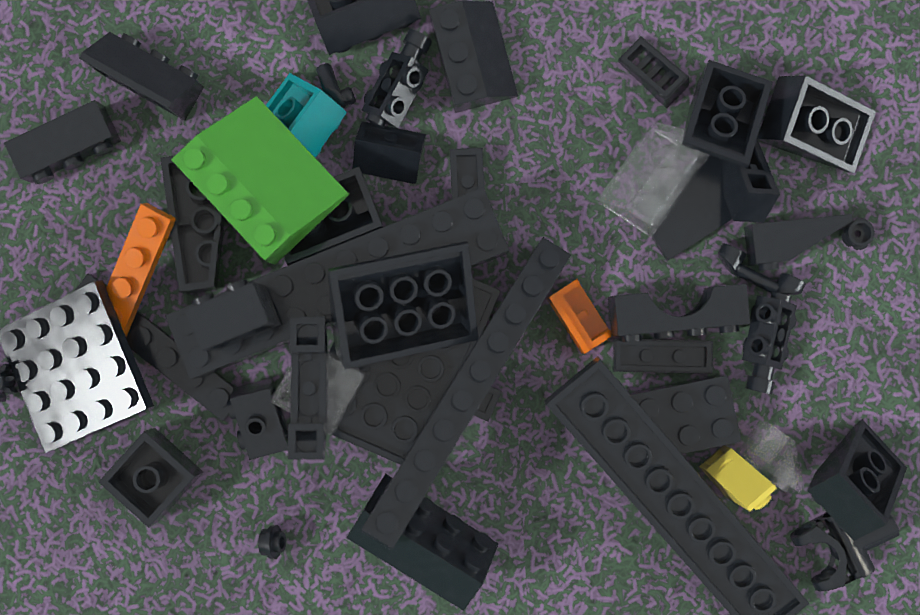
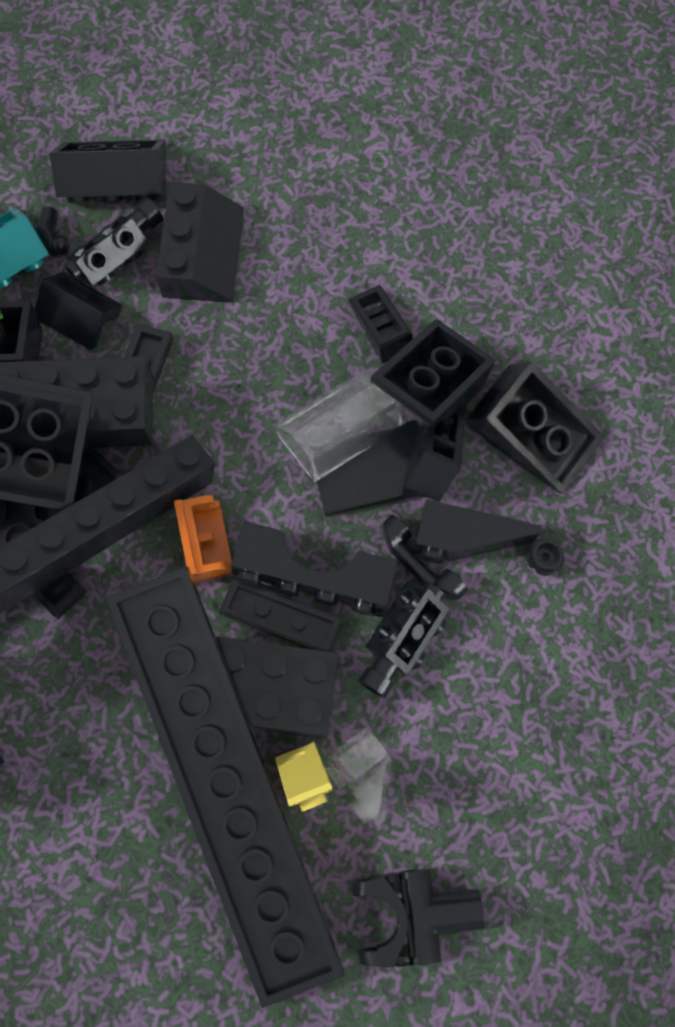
camera: 20 degrees right, 15 degrees down
(859, 482) = (452, 838): black slope -> none

